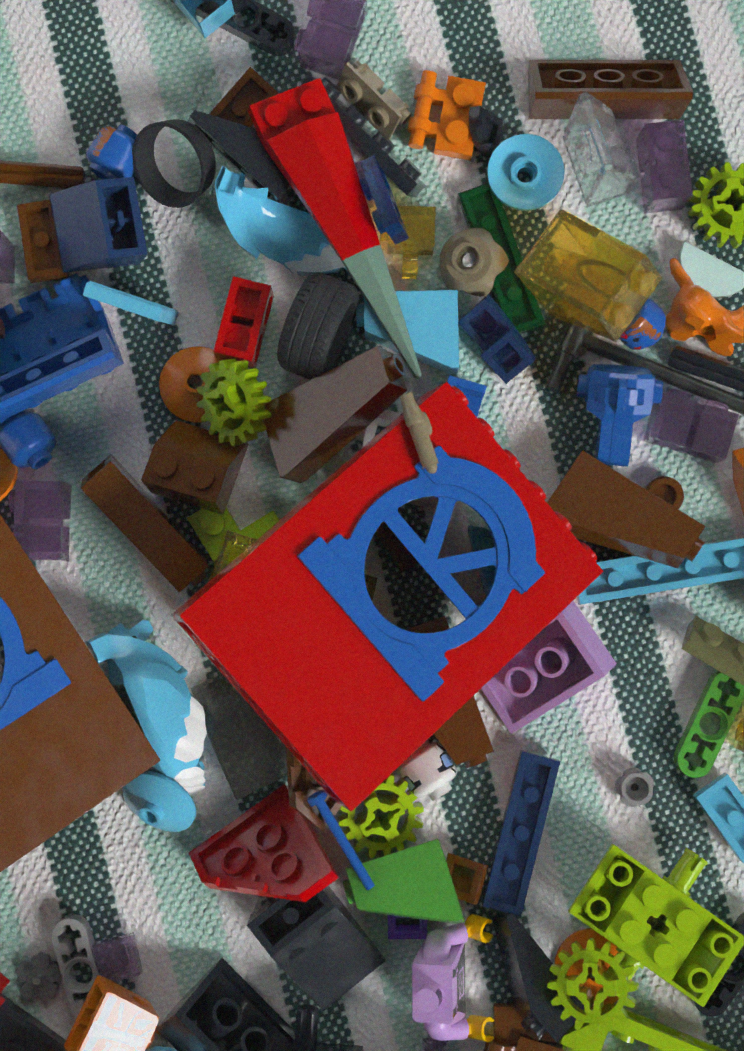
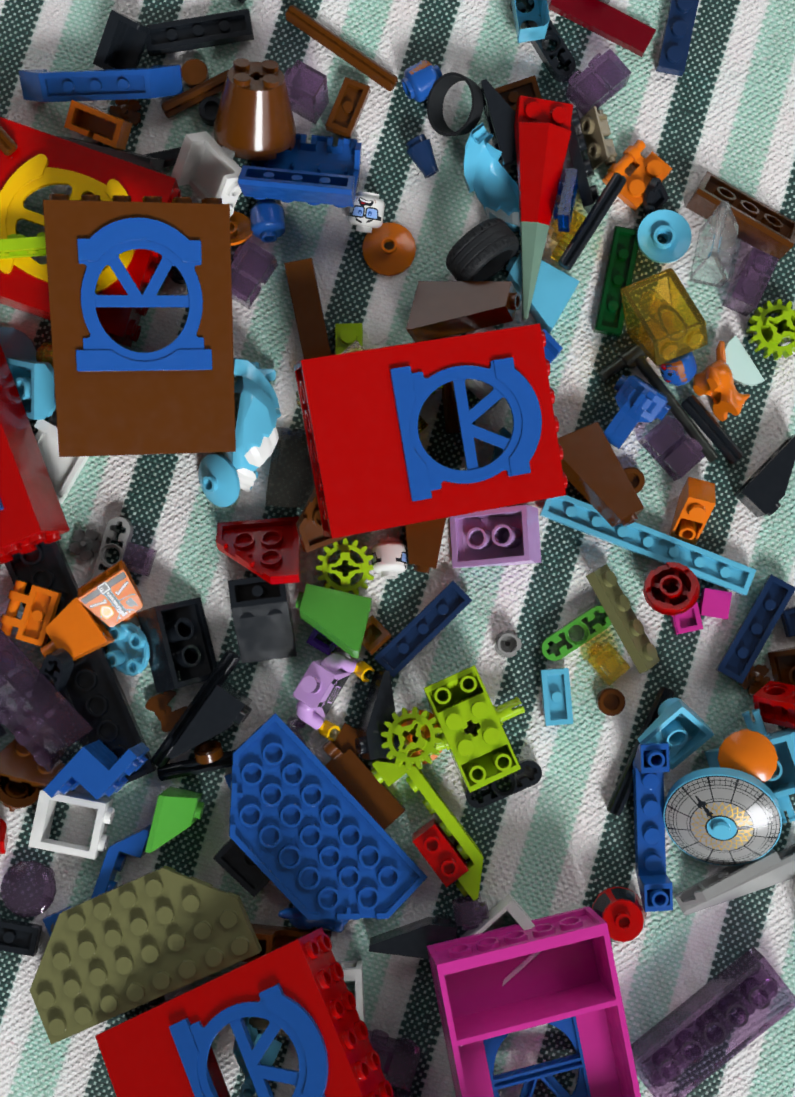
camera: 30 degrees right, 0 degrees up
(98, 225) = (387, 117): dark blue slope -> none
(130, 302) = (378, 173): medium azure tile -> none
(143, 357) = (367, 212): none -> white head
(170, 245) = (422, 155): none -> dark blue cone
(193, 467) = (358, 295): reddish brown slope -> none
(233, 398) = (405, 268): lime gear -> none
(244, 321) = (439, 226): red brick -> none
(318, 799) = (314, 561): blue piece -> none
(420, 429) = (506, 341): dark tan piece -> none
(429, 208) = (592, 221): none -> black axle
(480, 277) = (597, 282): dark tan piece -> none
(498, 338) = (586, 326): dark blue slope -> none

